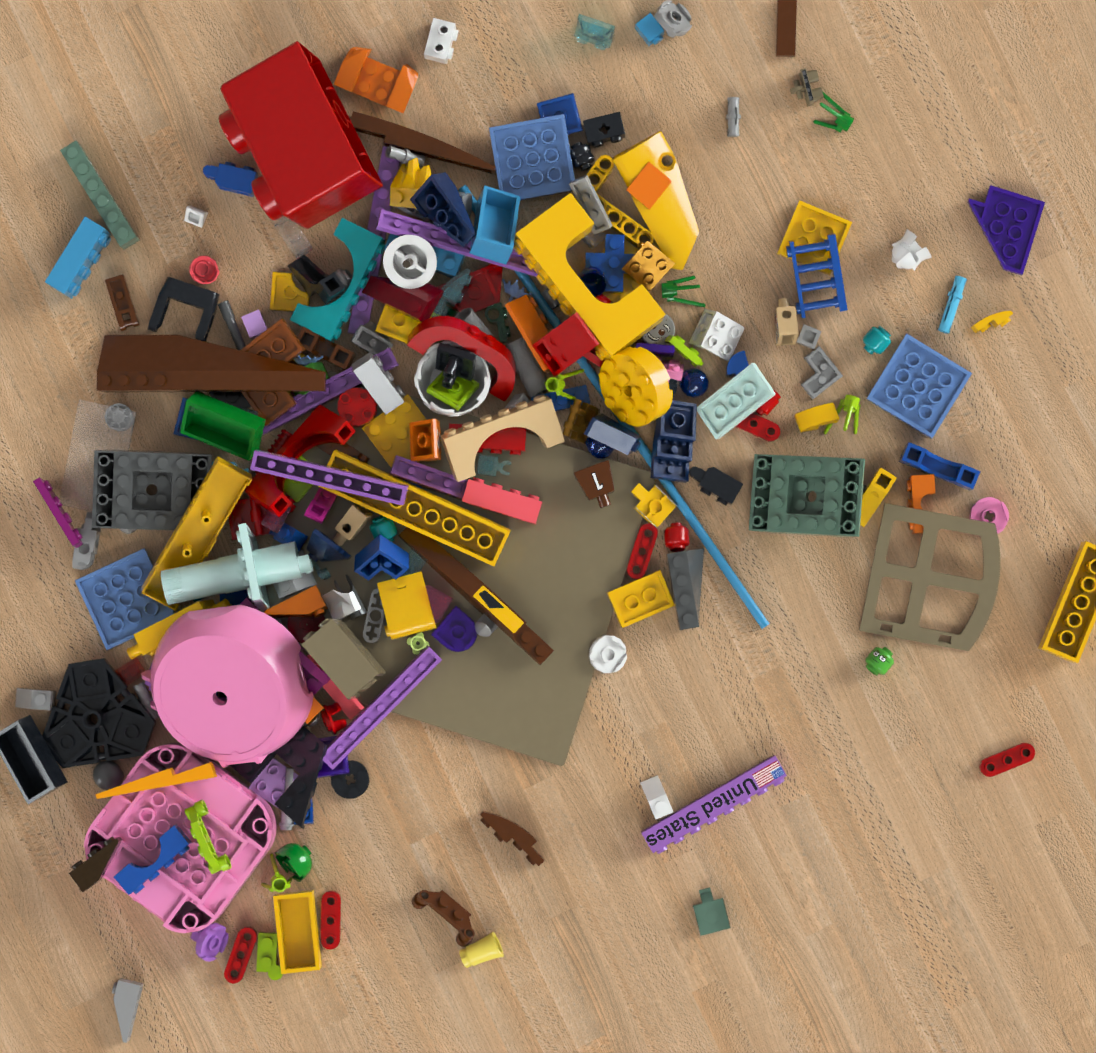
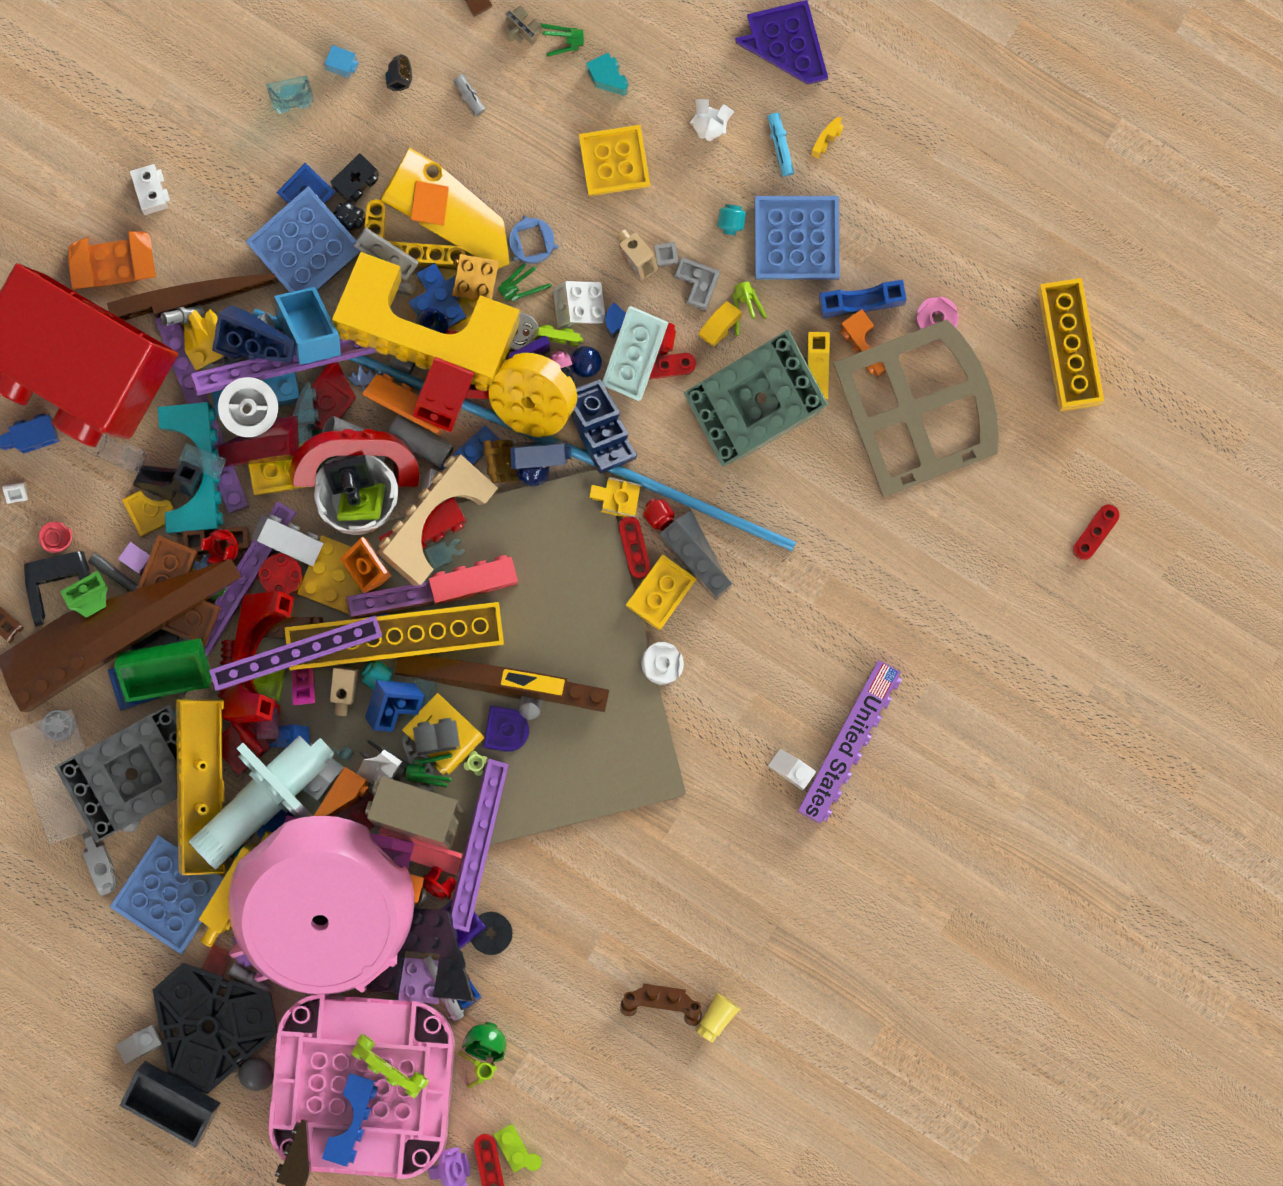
camera: 40 degrees left, 5 degrees down
(57, 510) = (47, 844): magenta wing -> none
(162, 779) = (310, 1038): light orange slope -> none
(199, 331) = (86, 595): none -> bright green slope
(297, 931) = (530, 1108): yellow piece -> none
(318, 356) = (212, 544): none -> red piece
(325, 549) = (333, 725): dark blue wedge -> none
(333, 911) = (556, 1089): red plate -> none
(354, 286) = (210, 463): none -> clear light blue plate
(368, 624) = (417, 772): none -> green plant
(369, 340) = (253, 507): light grey slope -> none
(398, 606) = (436, 737): none -> dark grey brick
(439, 603) = (472, 711): clear pink slope -> none
(504, 331) = (376, 422): clear green plate -> none
(507, 829) = (670, 886): reddish brown slope -> none
(557, 384) = (458, 438): lime plant -> none
(596, 482) = (551, 508): reddish brown torso -> none
(666, 14) = (357, 38): light grey plate -> none
(689, 66) = (399, 73): none -> black rock
(711, 914) = (912, 847): sand green piece -> none
(716, 483) = (665, 441): black hinge -> none
(725, 266) = (547, 235): none -> medium blue piece
(835, 282) = (646, 172): blue fence -> none
(849, 166) = (605, 74): none -> teal slope
(879, 661) = (920, 513): bright green head -> none

